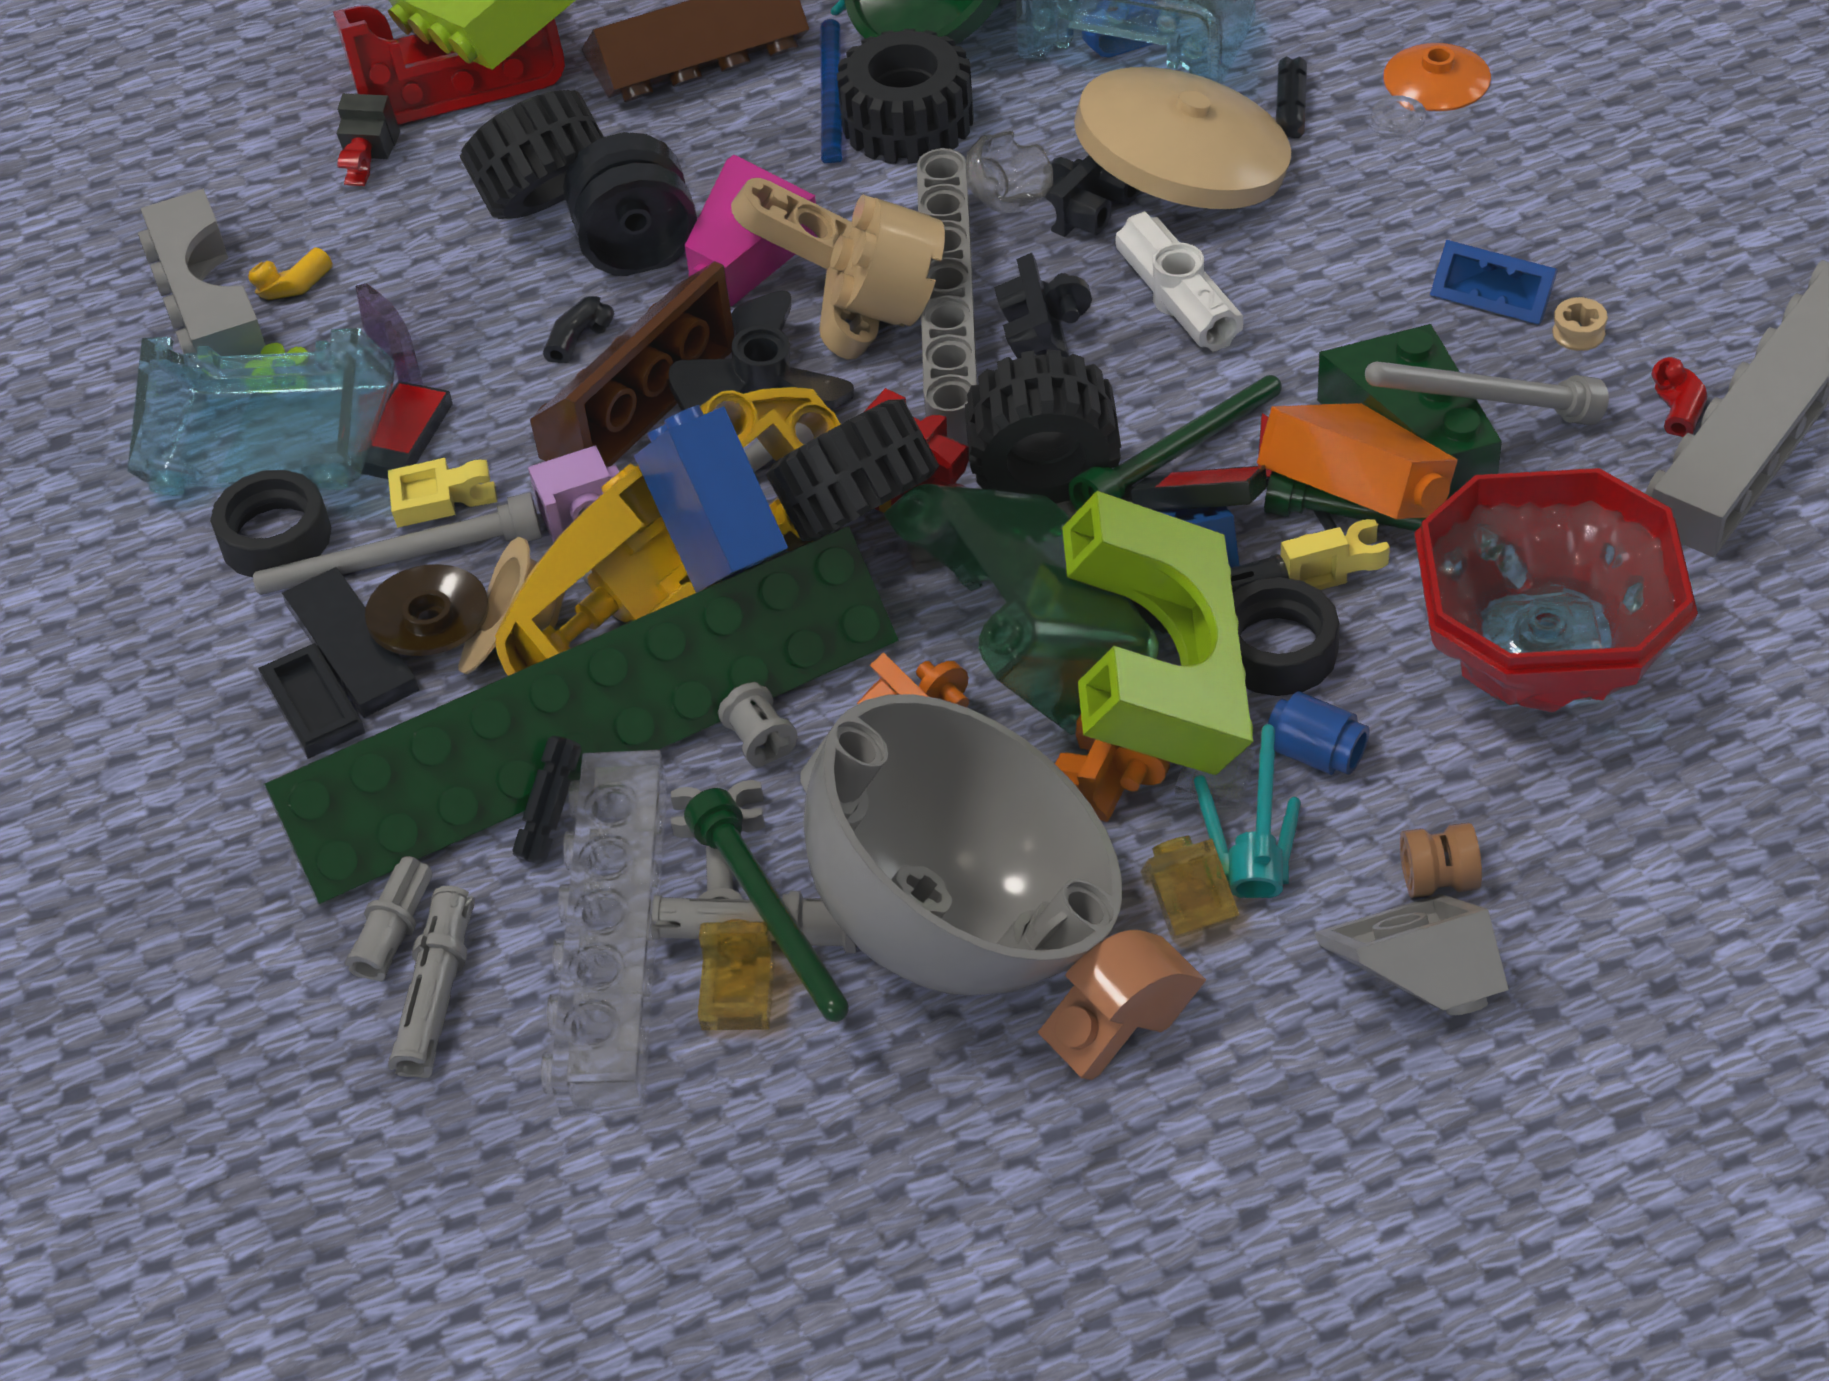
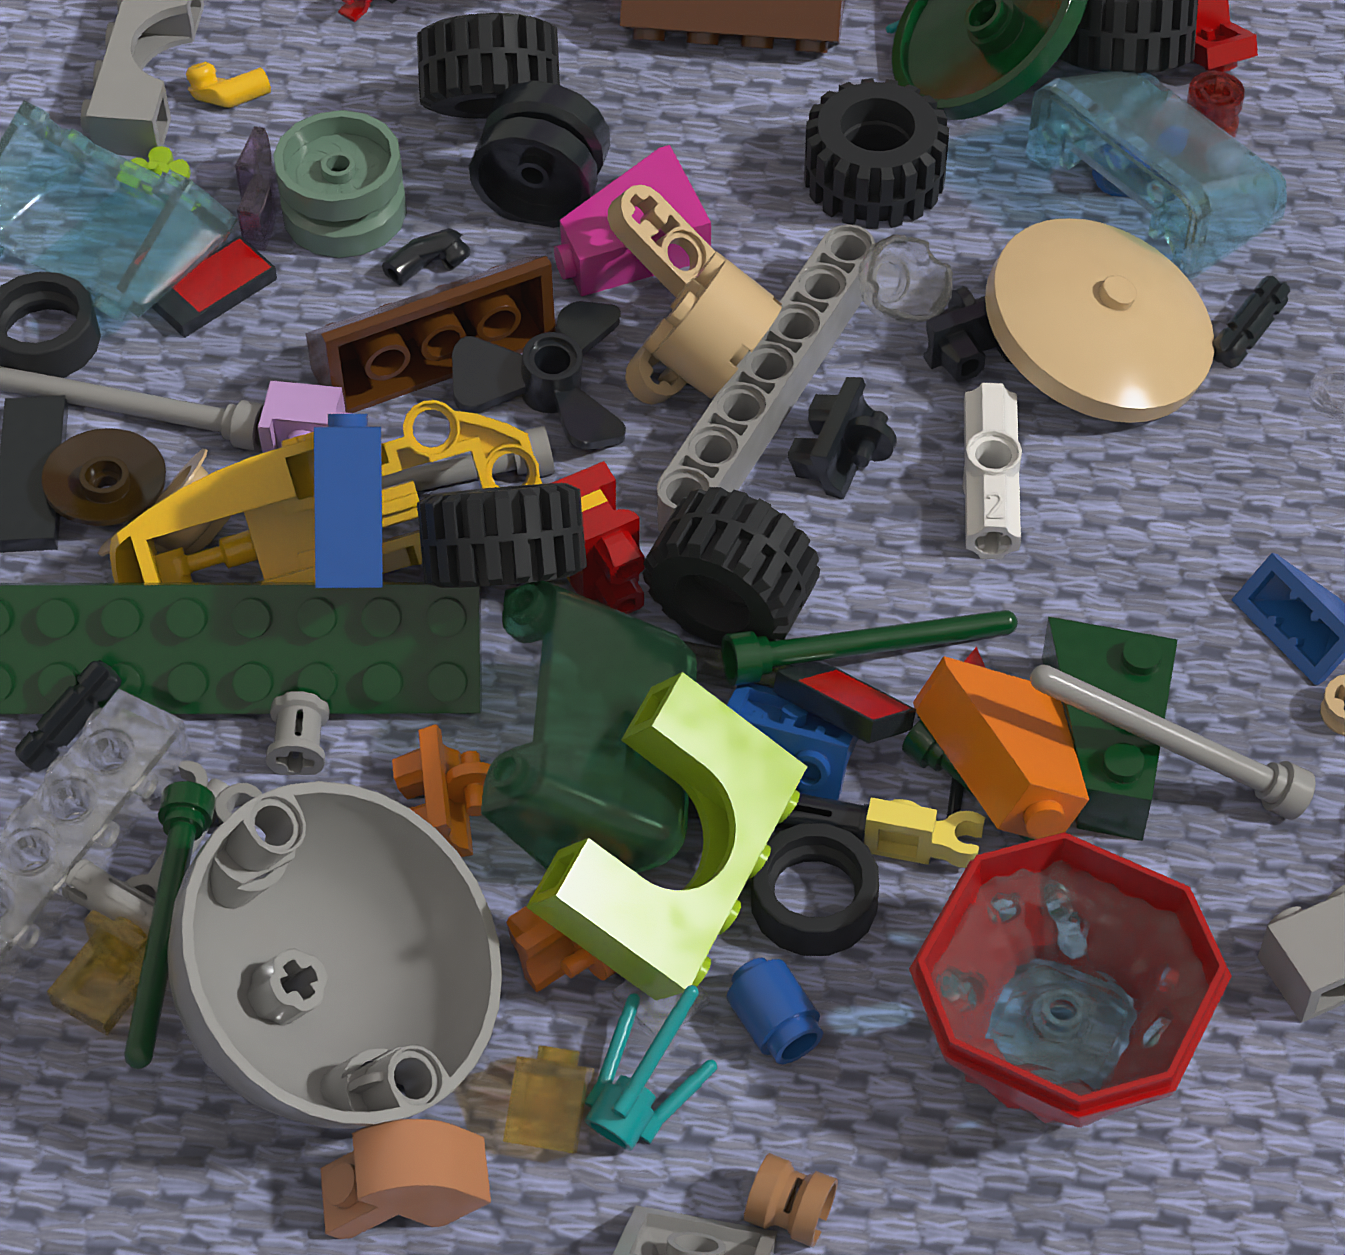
camera: 25 degrees right, 5 degrees up
(431, 488) = (190, 356): light yellow plate -> none
(465, 300) = (340, 183): none -> sand green wheel
(830, 105) = (794, 155): clear blue bar -> none

